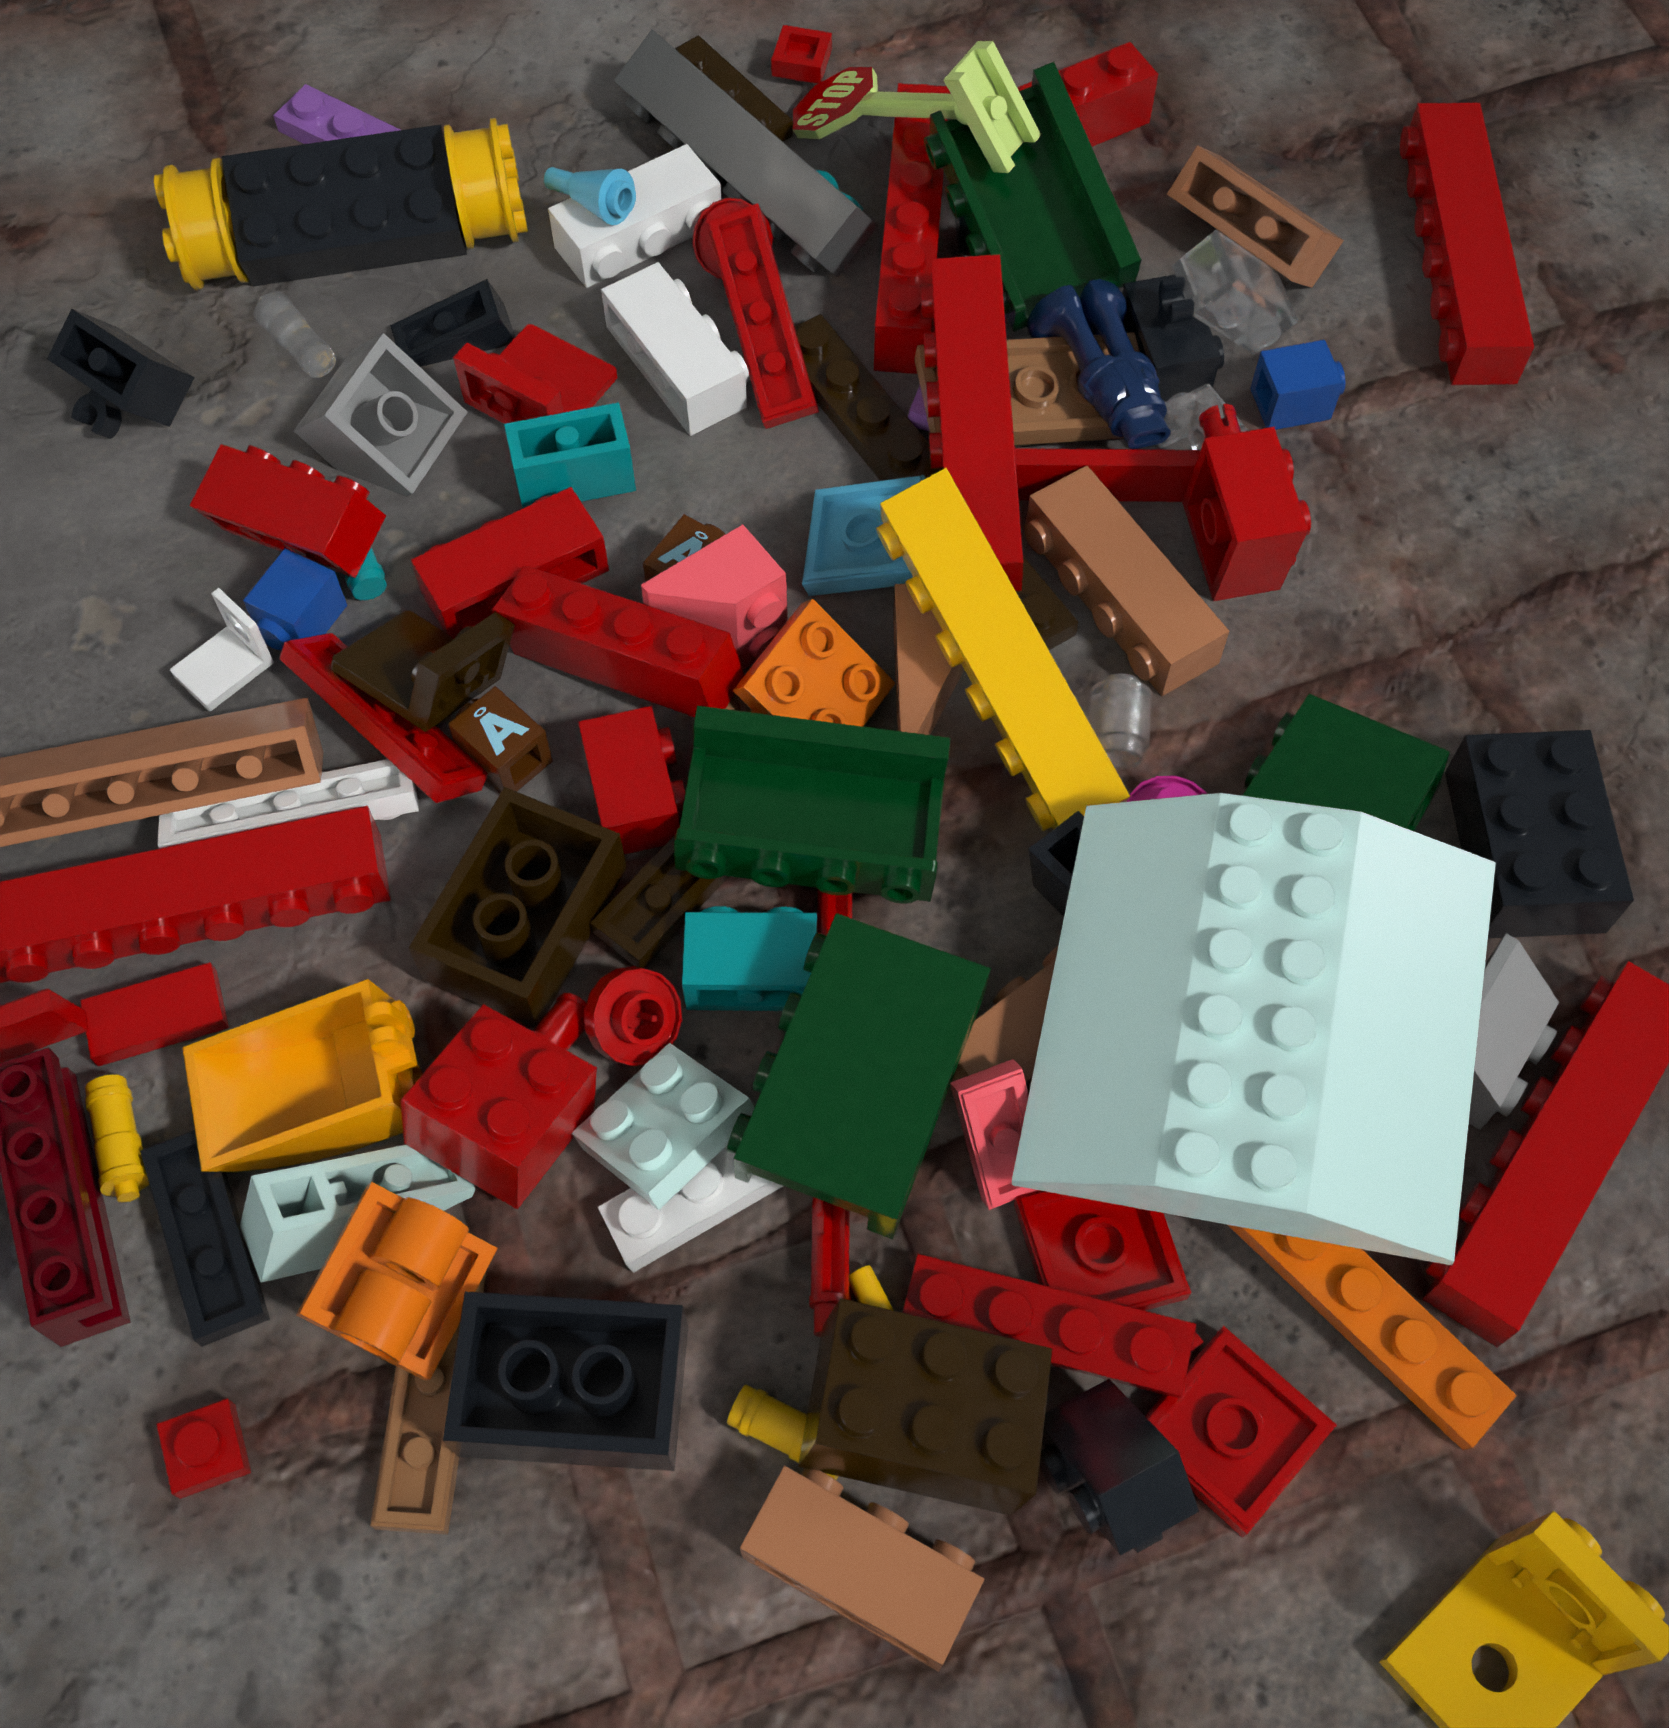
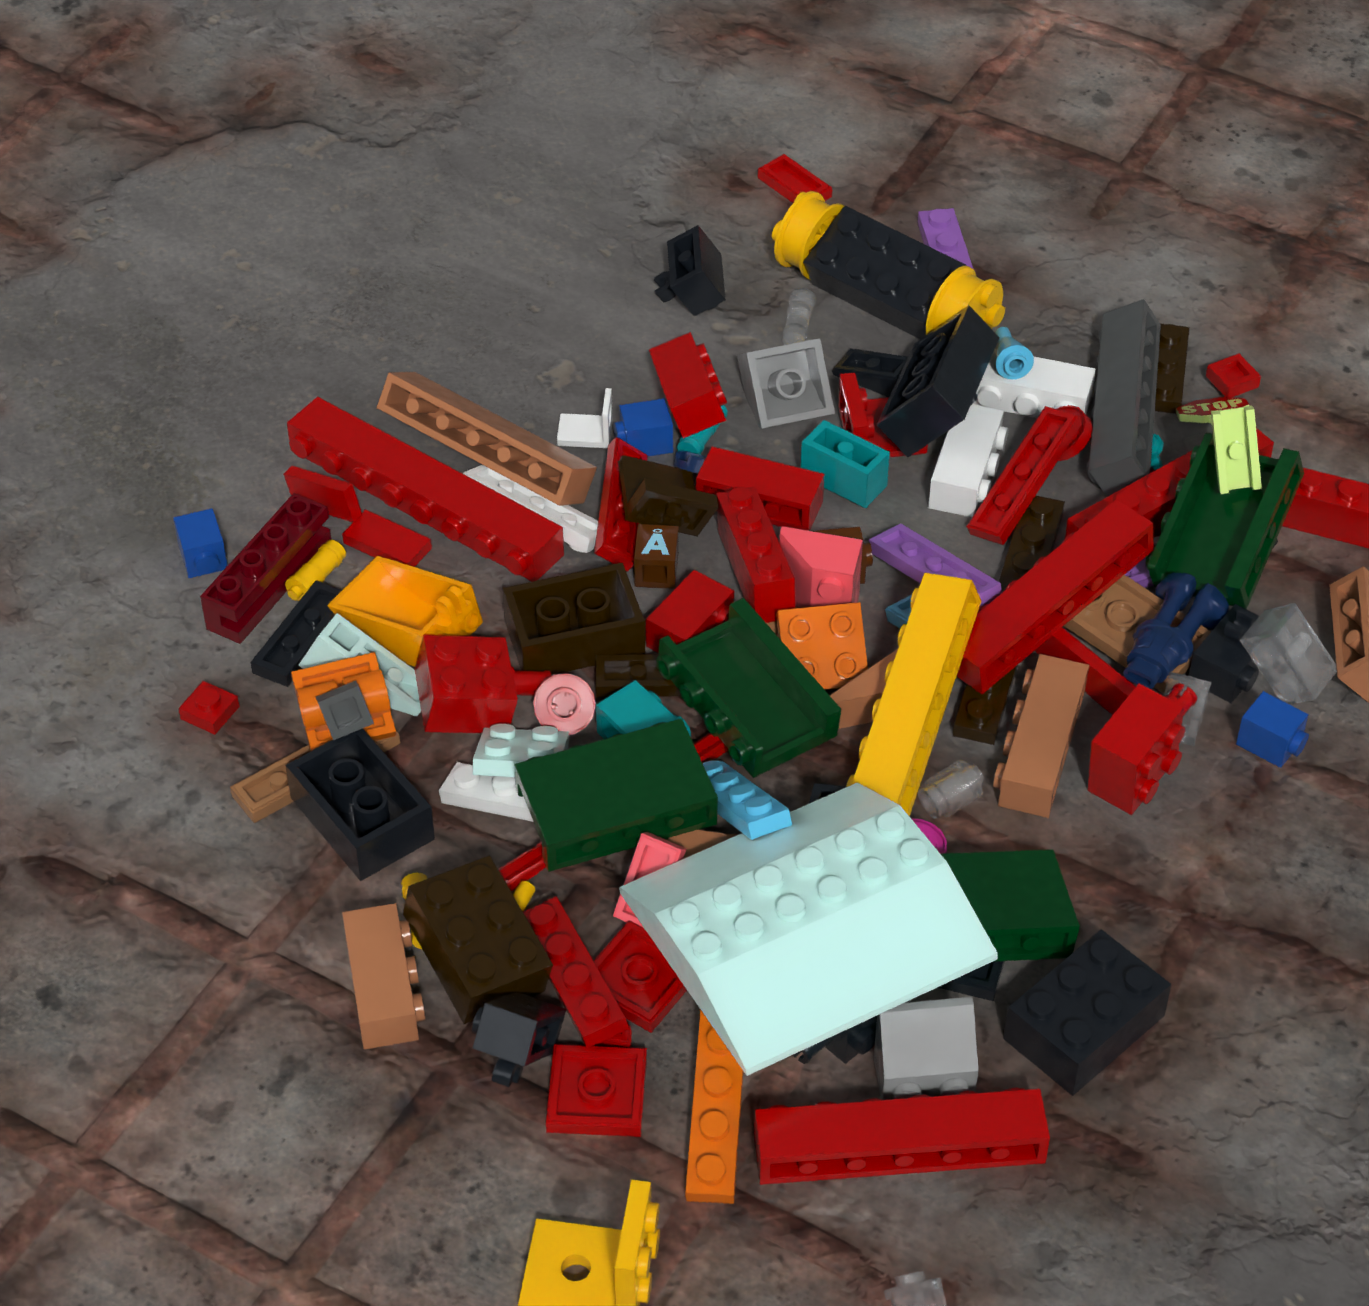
camera: 50 degrees right, 15 degrees down
(89, 184) = (791, 179): none -> red tile
(394, 597) = (689, 461): none -> dark blue tile
(440, 1297) = (344, 710): none -> dark grey plate
(568, 281) = (938, 381): none -> black brick
(807, 492) = (917, 555): none -> medium lavender plate
(1013, 943) = (745, 803): none -> medium azure plate

